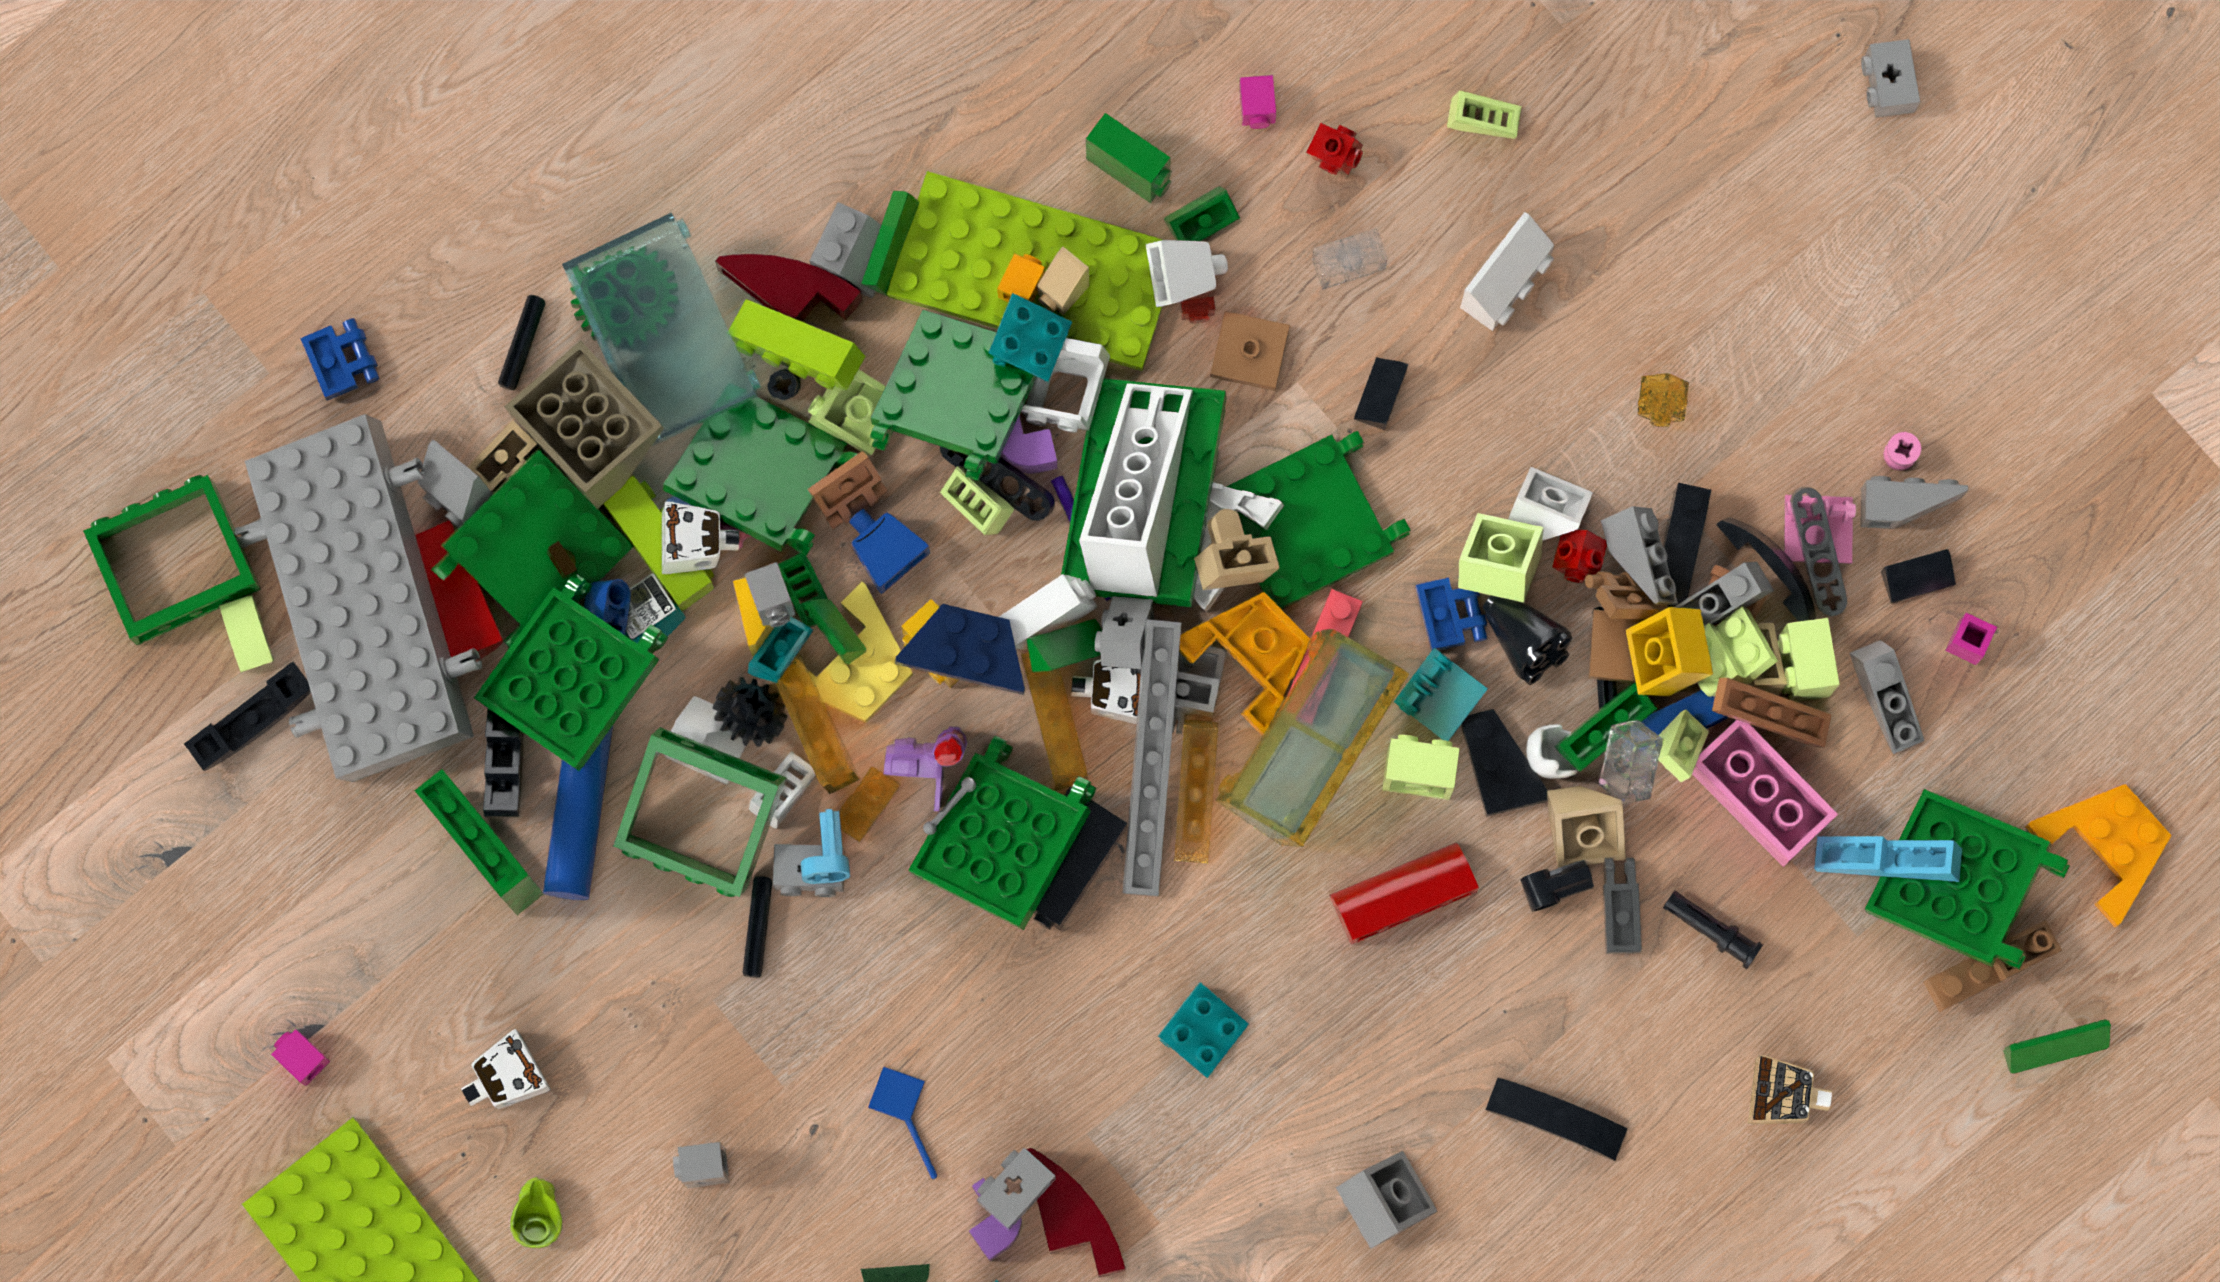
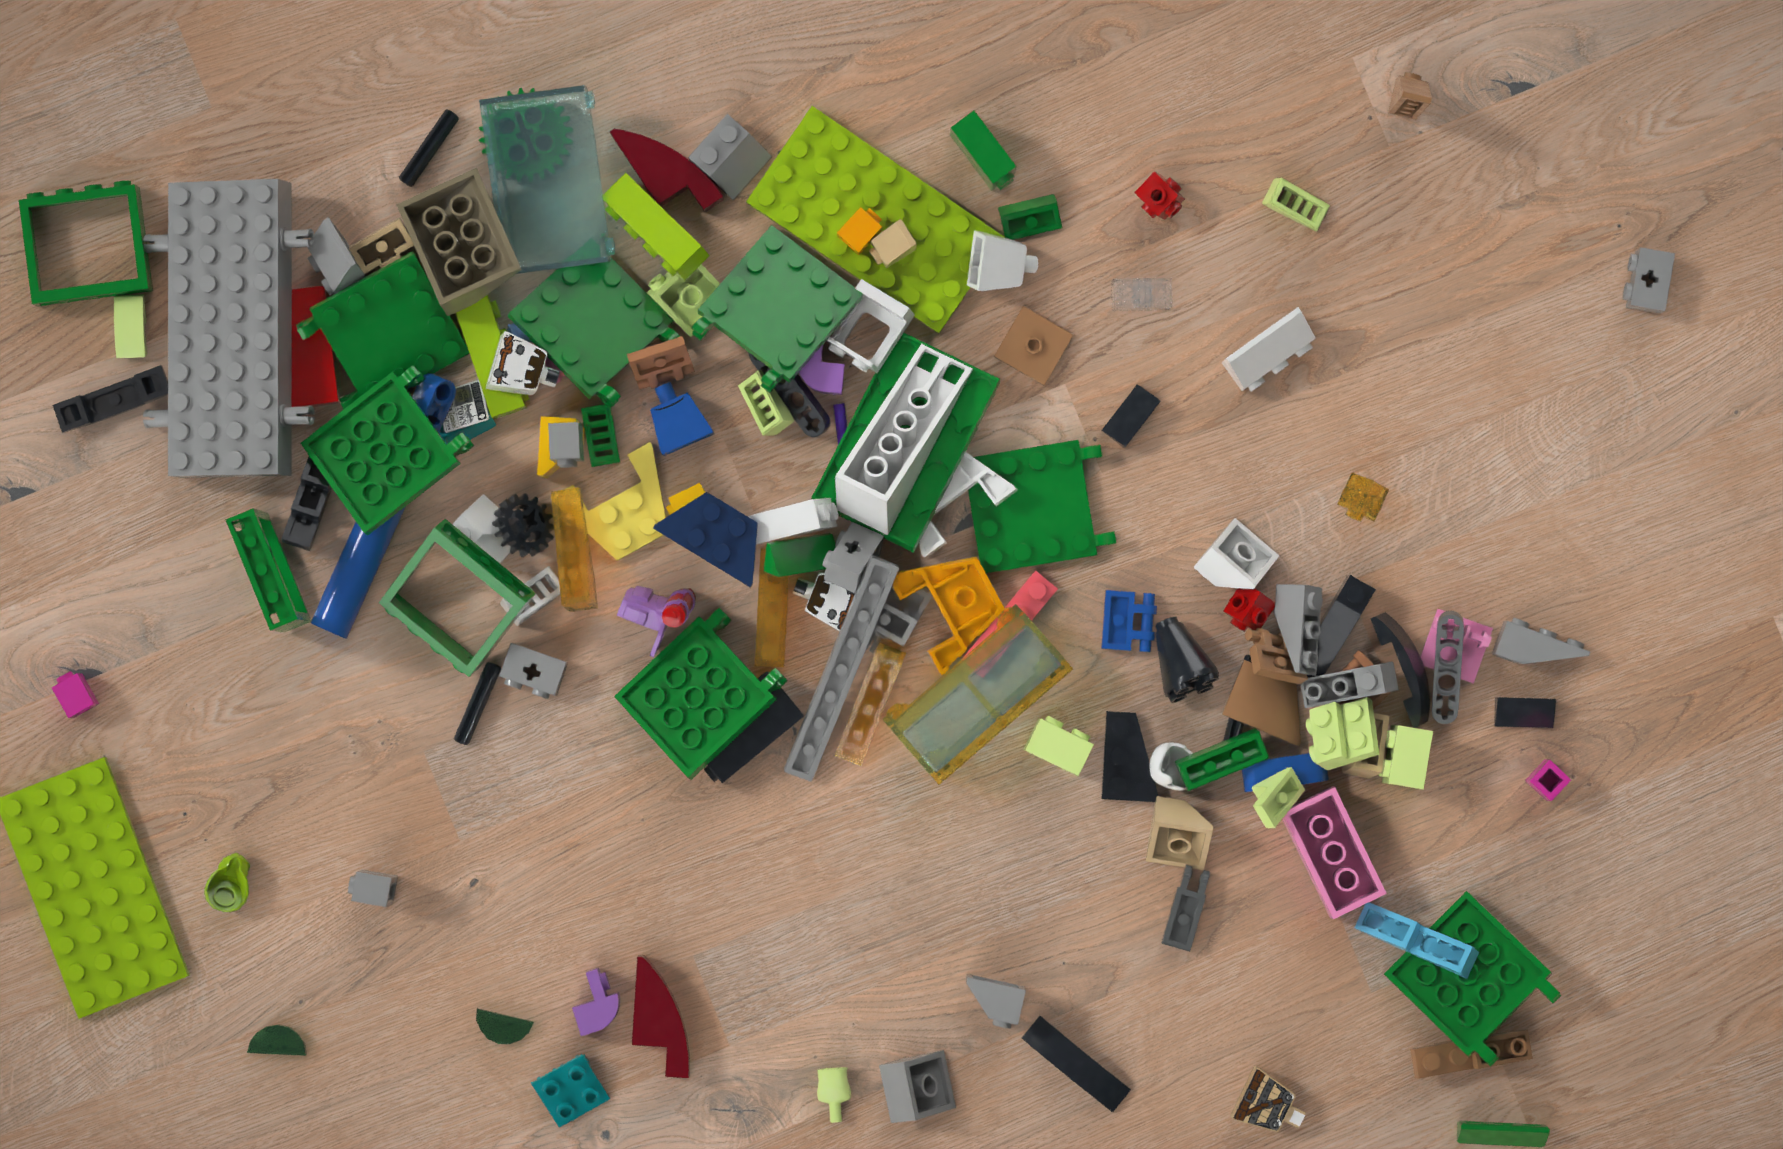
camera: 15 degrees right, 10 degrees up
(330, 363) = (264, 115): blue plate -> none
(506, 1074) = (237, 761): torso -> none
(562, 559) = (407, 351): dark brown tile -> none
(779, 650) = (563, 483): teal slope -> none
(782, 394) = (631, 261): black bush -> none
(833, 864) = (551, 677): medium azure piece -> none
(835, 629) = (615, 478): green slope -> none
(867, 803) = (596, 630): clear yellow slope -> none
(890, 241) = (761, 159): green slope -> none
(897, 1097) = (549, 878): blue piece -> none
(968, 785) = (684, 642): light grey hinge -> none
(1010, 1208) = (636, 987): light grey brick -> none
(1029, 338) = (850, 283): teal hinge -> none
(1197, 309) = (1000, 299): clear red plate -> none
(1203, 1030) = (813, 903): teal hinge -> none
(1232, 556) = (961, 522): tan brick -> none
(1257, 101) = (1108, 133): dark pink brick -> none
(1293, 1233) = (833, 1090): none -> yellowish green piece
(1404, 893) = (1013, 841): red brick -> none
(1440, 695) = (1096, 688): teal hinge -> none
(1444, 1069) = (998, 999): none -> light grey slope
(1500, 557) = (1182, 591): yellowish green brick -> none
(1549, 887) = (1134, 874): black piece -> none
(1630, 761) = (1232, 796): clear brick -> none
(1669, 651) = (1293, 717): yellow brick -> none
(1726, 937) = (1263, 961): black pin -> none
(1771, 712) = (1361, 792): nougat plate -> none
(1887, 694) = (1464, 803): light grey slope -> none
(1896, 455) = (1541, 603): bright pink wheel -> none
(2121, 835) = (1615, 978): light orange wing -> none

